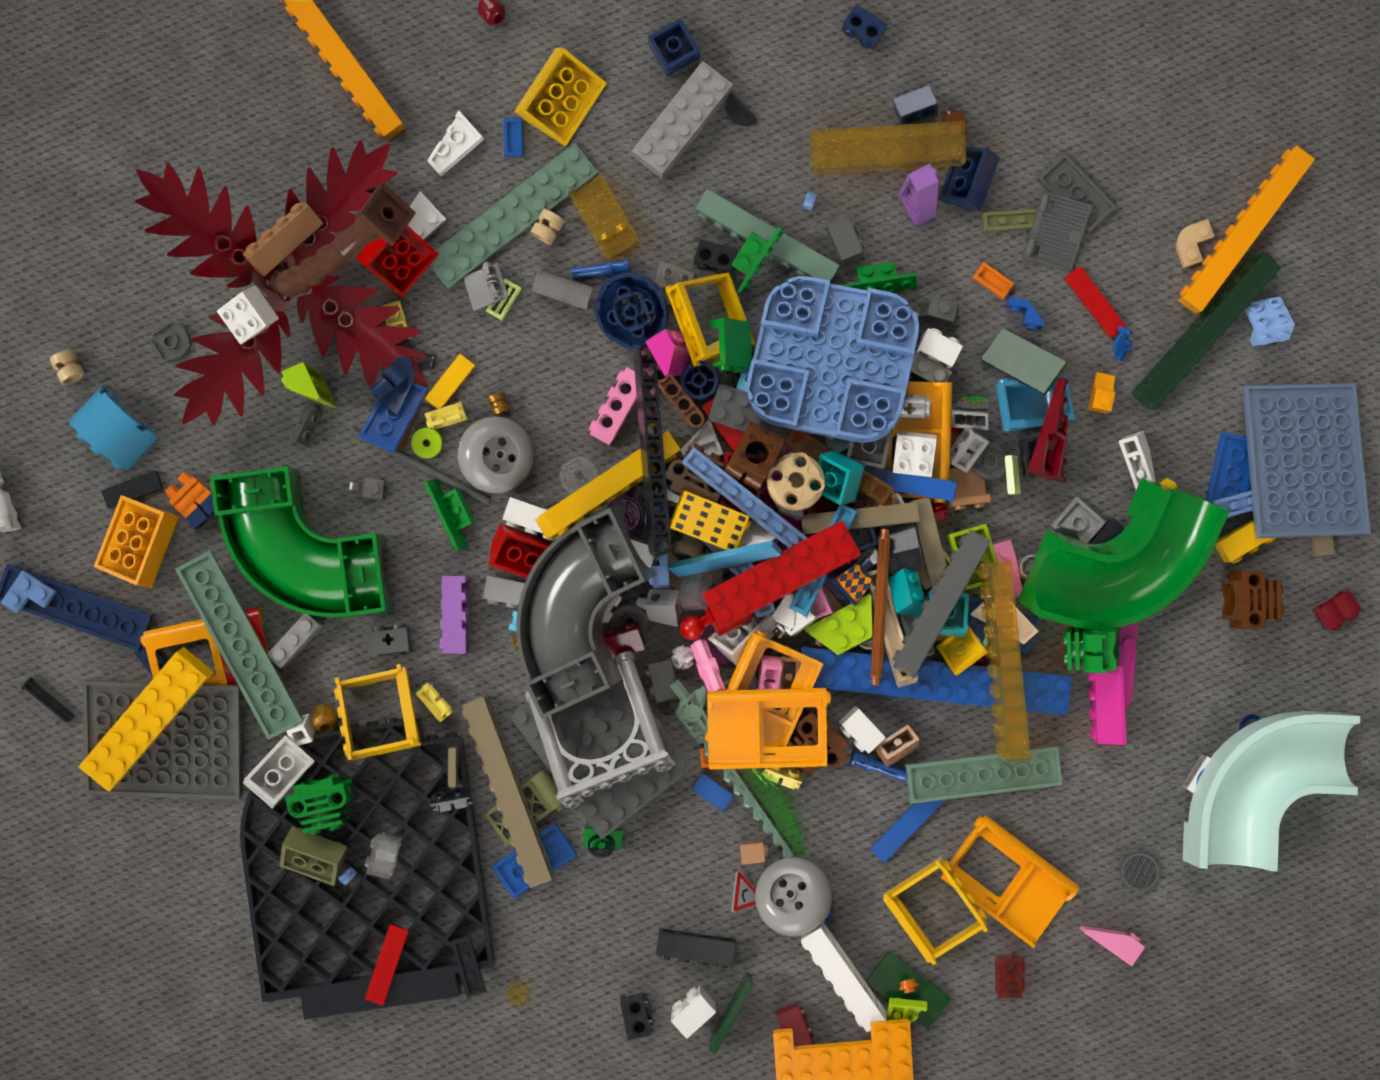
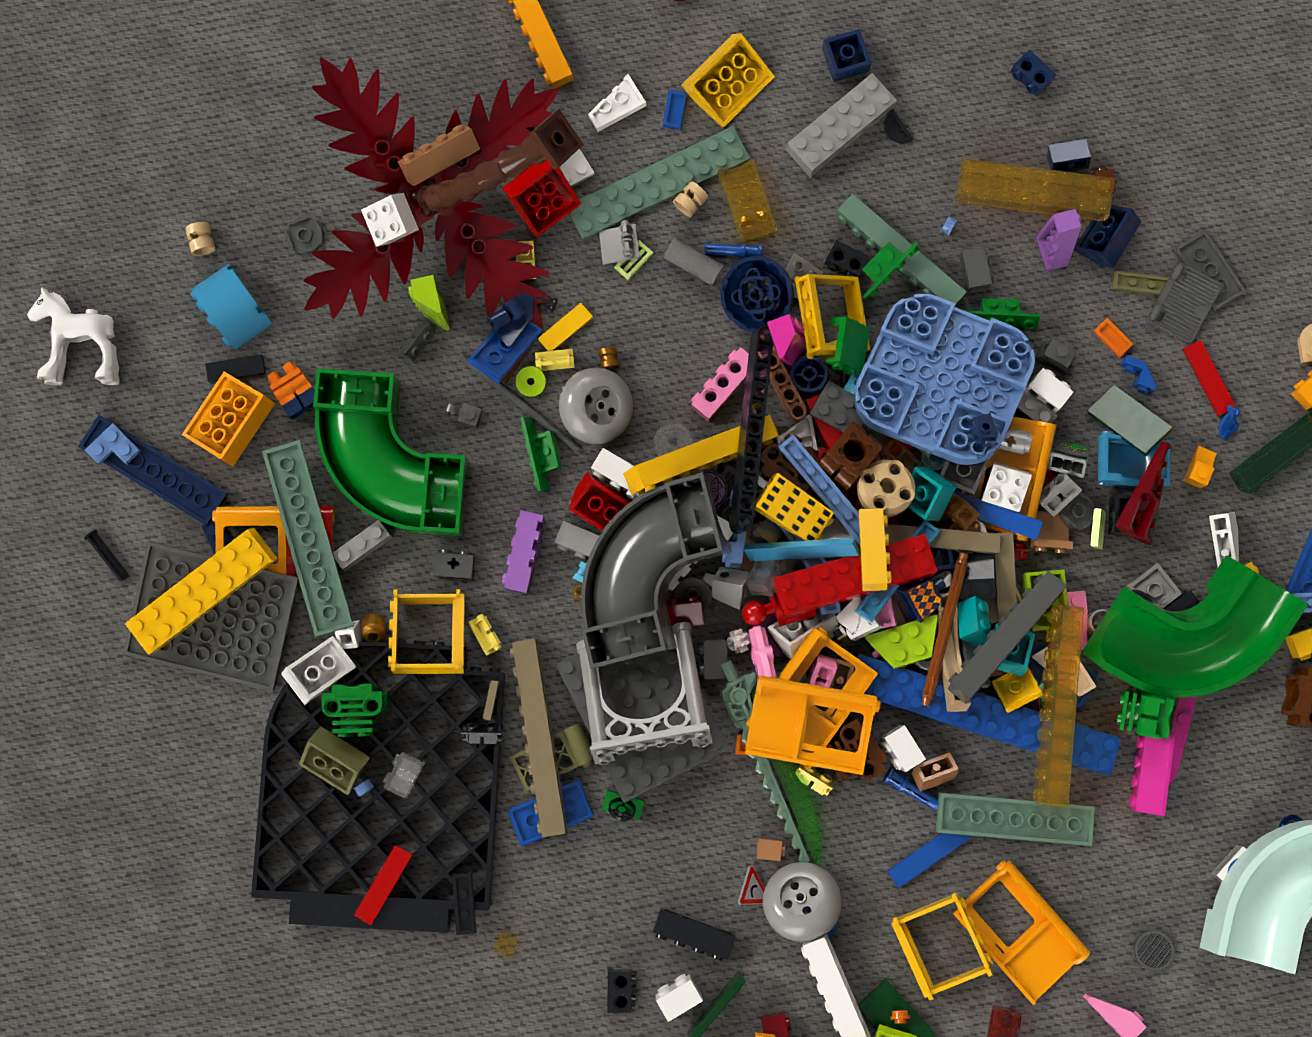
camera: 10 degrees right, 5 degrees down
(712, 792) = (741, 781): blue tile -> none
(793, 547) = (873, 550): none -> yellow brick
(880, 405) = (983, 430): none -> dark blue brick

